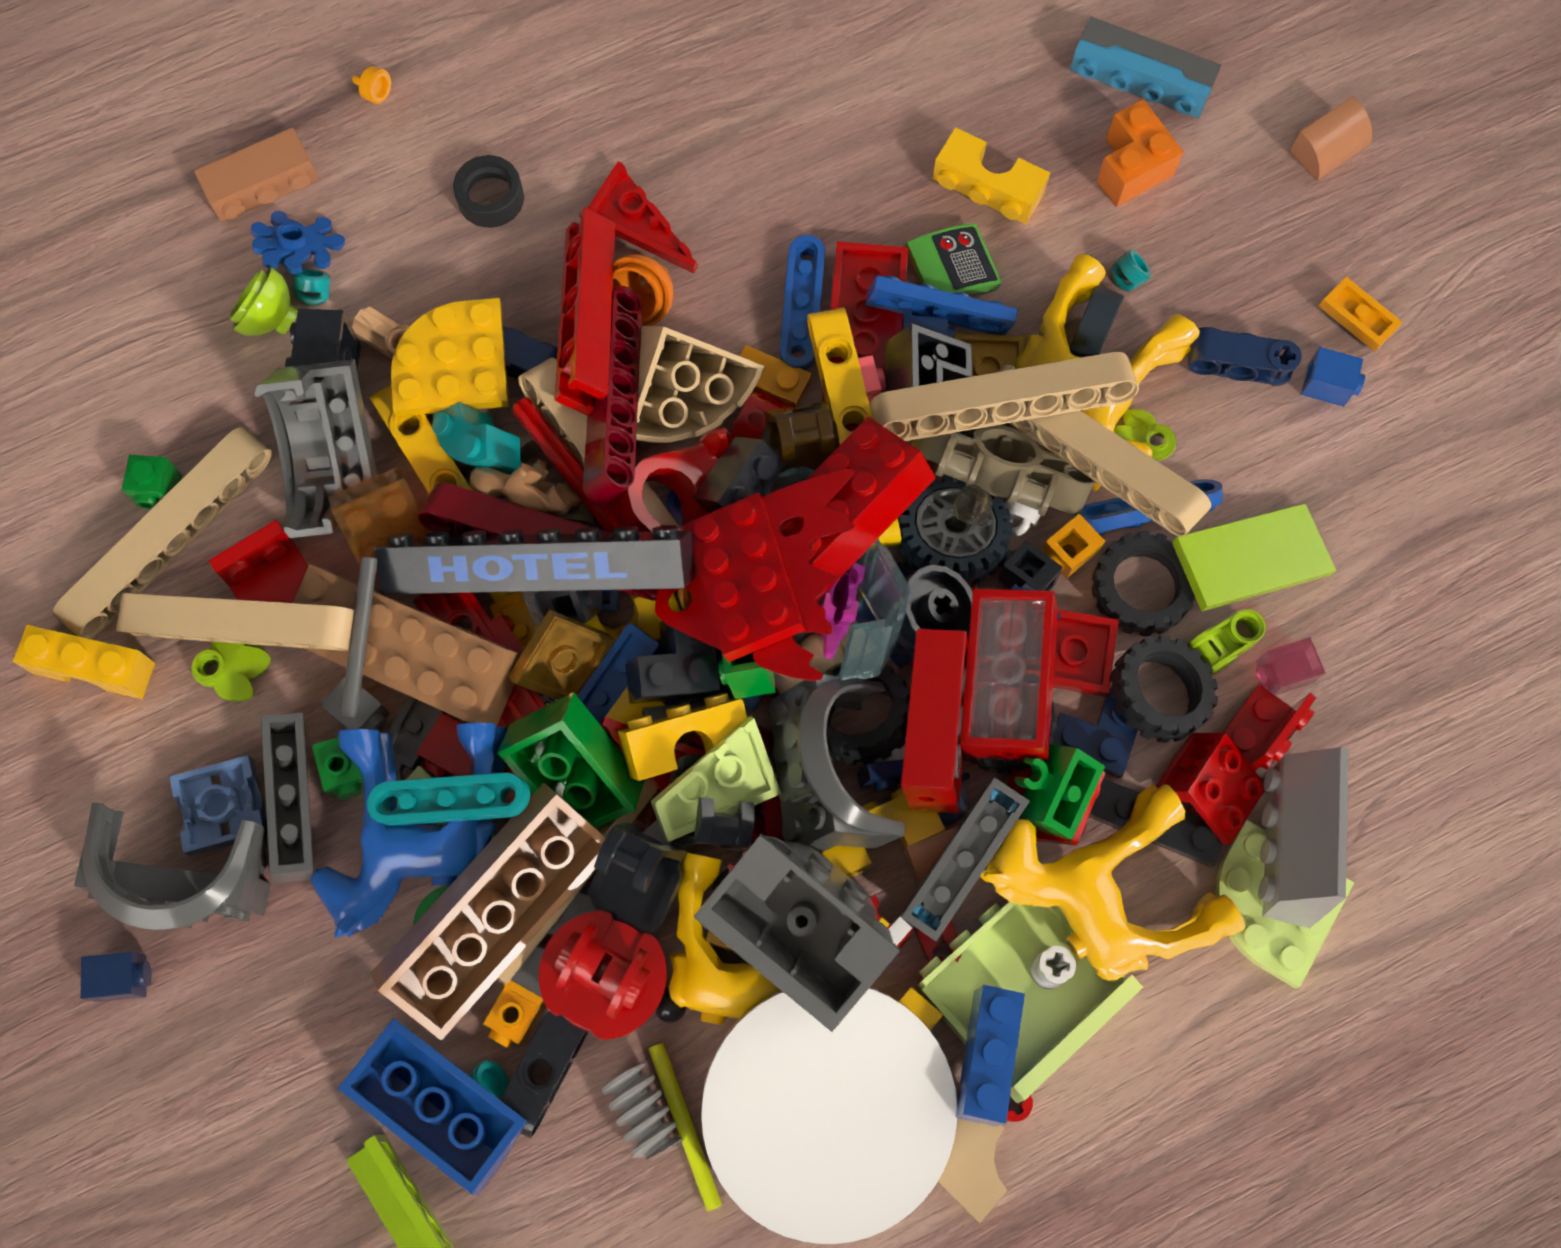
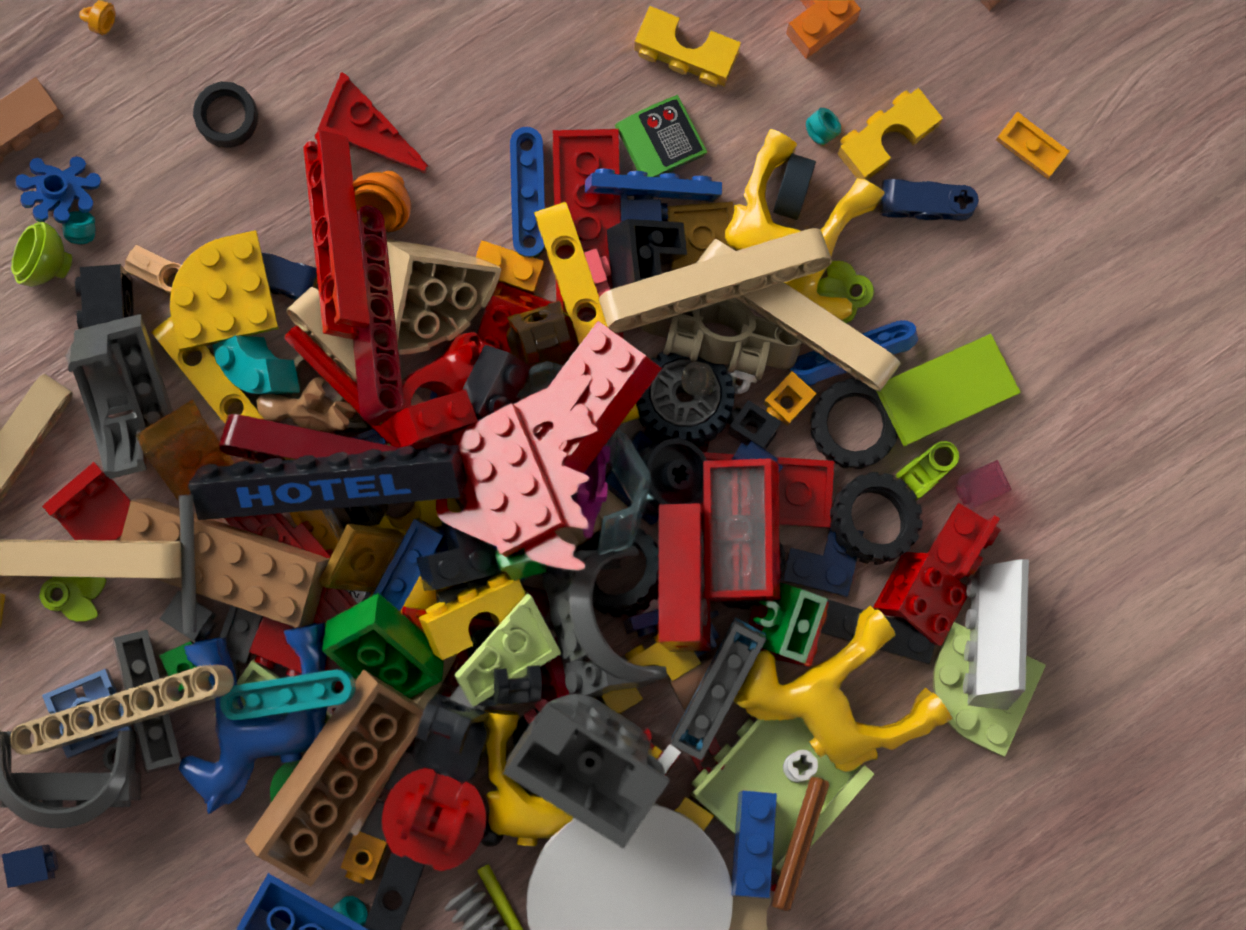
camera: 10 degrees left, 10 degrees up
(252, 796) = (135, 704): none -> tan beam
(665, 500) = (434, 419): none -> red piece
(1047, 1062) = (800, 844): none -> dark orange axle
(1226, 269) = (910, 116): none -> yellow arch
(1333, 377) = (1010, 211): blue brick -> none

